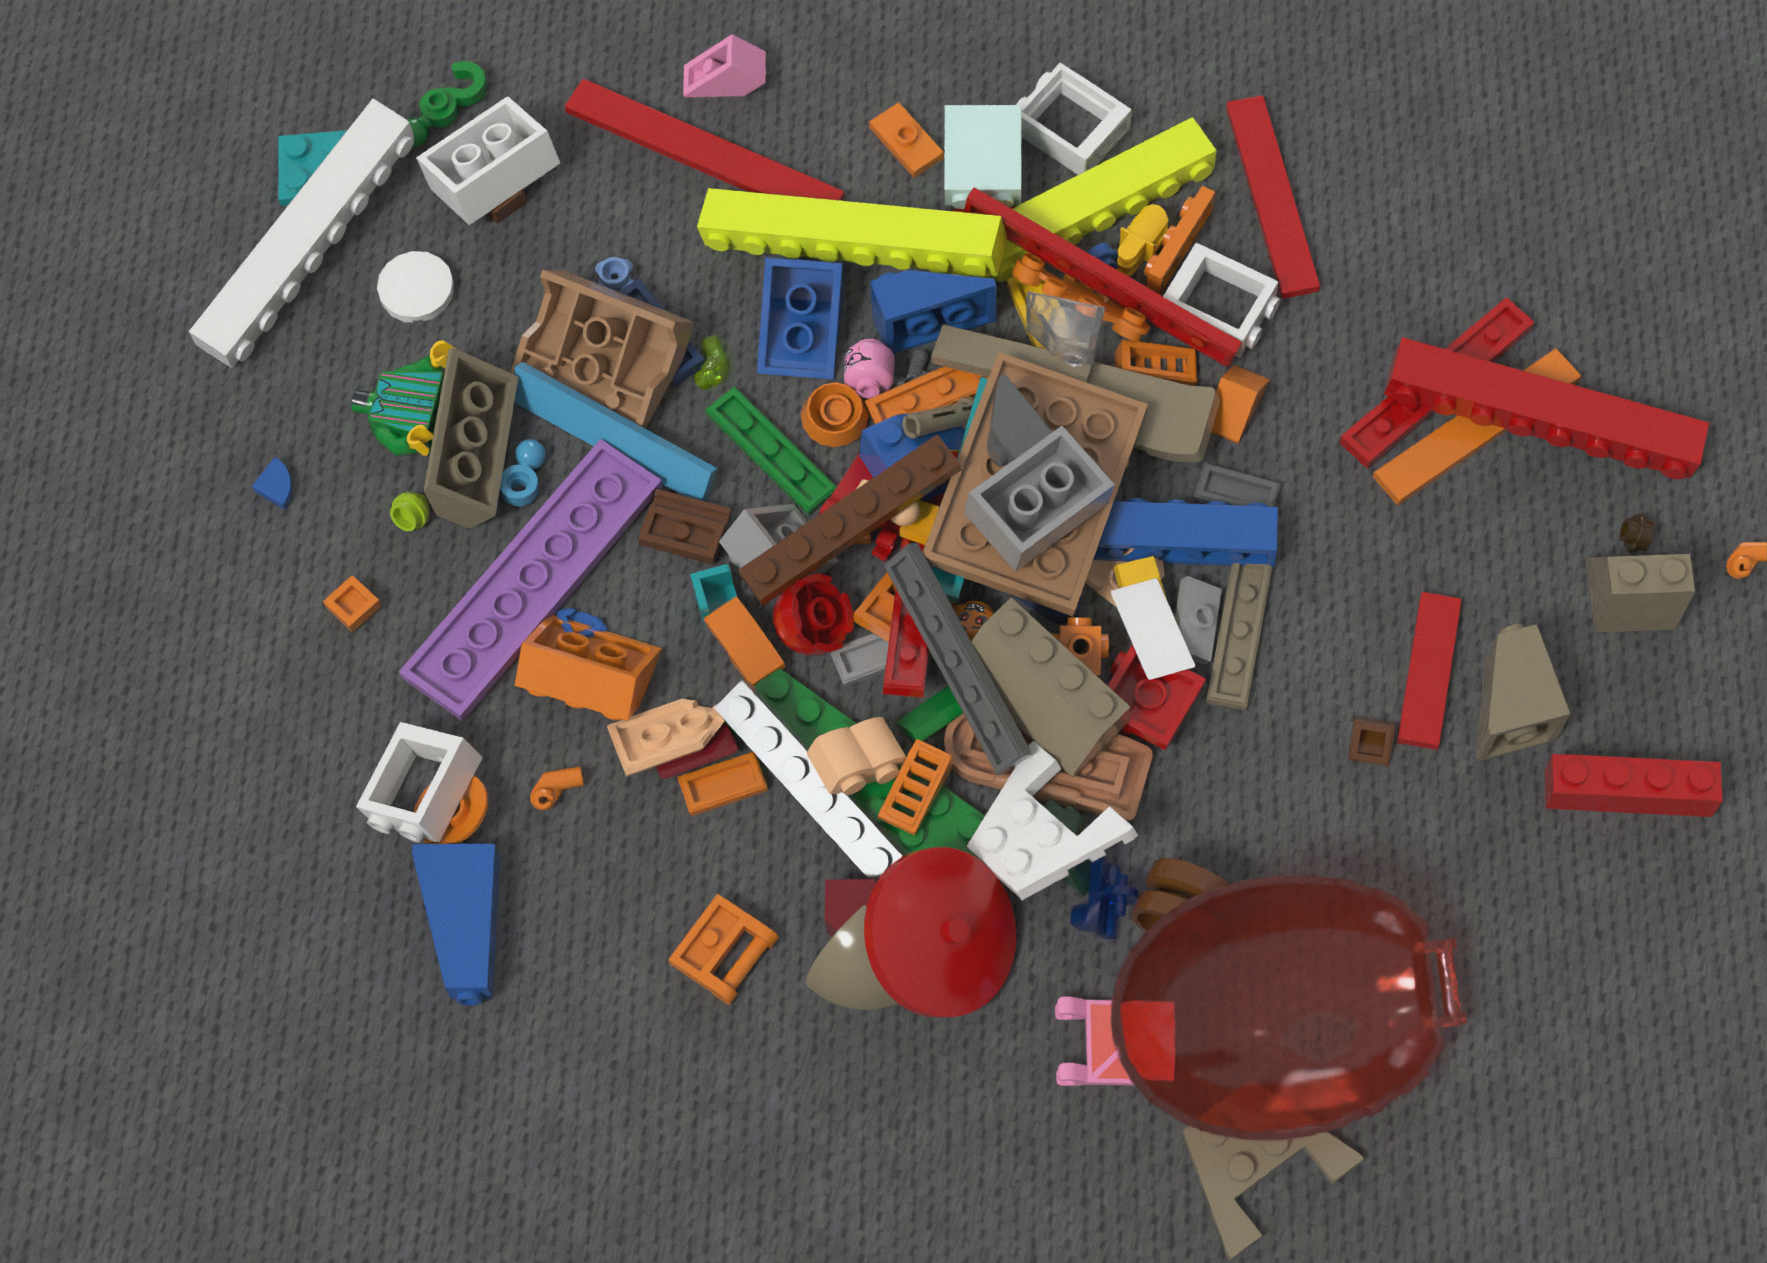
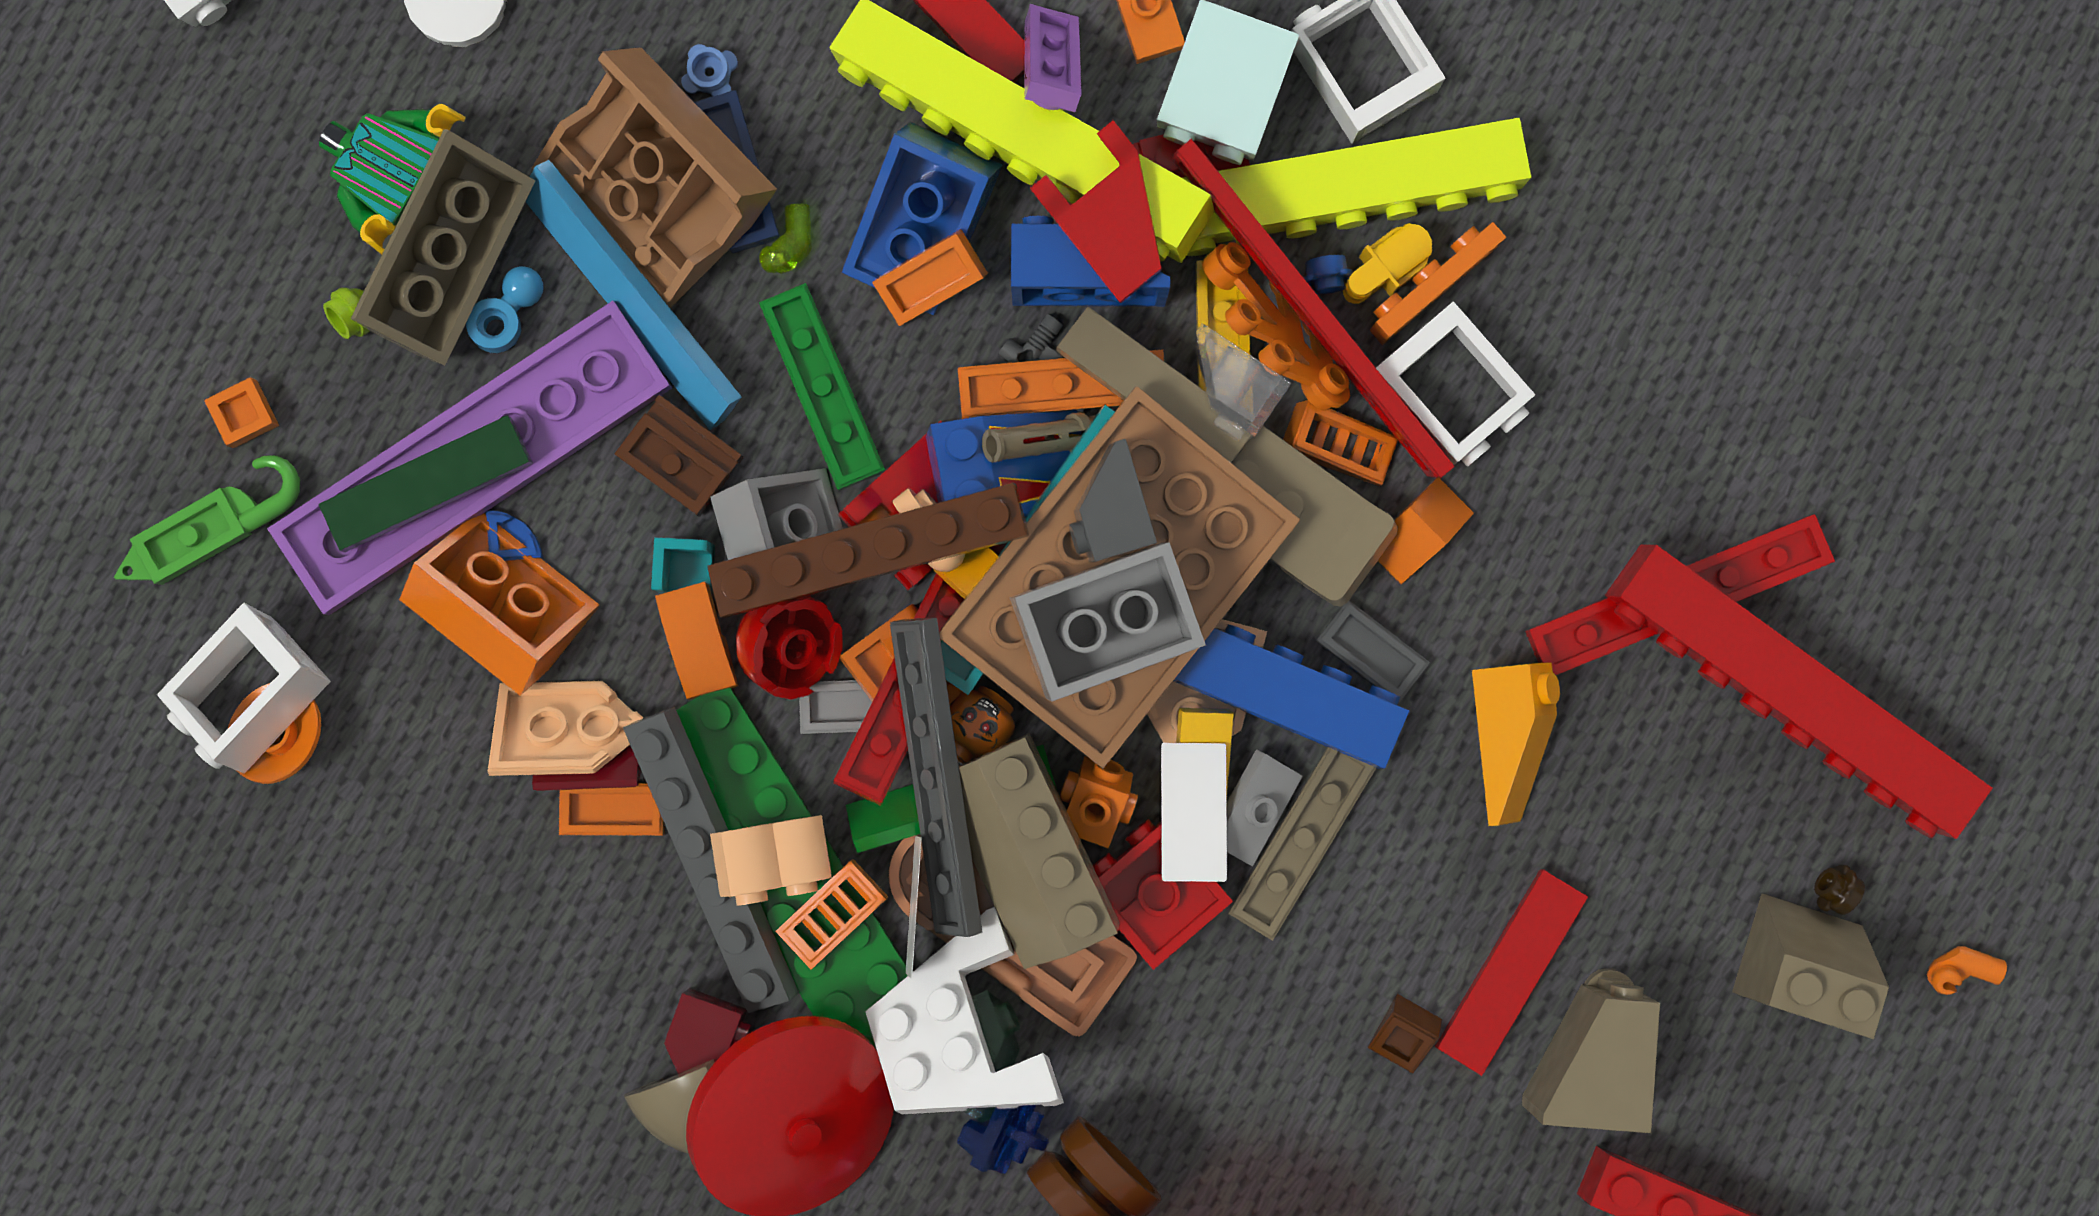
camera: 15 degrees right, 20 degrees up
(275, 484) = (199, 211): blue tile -> none
(351, 690) = (206, 527): none -> bright green plate
(461, 908) = (244, 872): blue slope -> none
(507, 599) = (425, 483): none -> dark green tile
(552, 785) = (407, 739): orange arm -> none
(711, 942) = (531, 1007): orange plate -> none
(822, 349) = (930, 277): none -> orange tile
(844, 413) = (930, 355): orange hat -> none
(856, 181) = (1052, 59): none -> medium lavender plate
(869, 367) = (978, 325): bright pink head -> none
(938, 255) = (1111, 220): none -> red flag
(974, 757) = (913, 906): none -> white sticker
(1272, 197) = (1579, 257): red tile -> none
(1359, 501) = (1514, 726): none -> light orange slope
(1455, 441) = (1675, 681): orange tile -> none

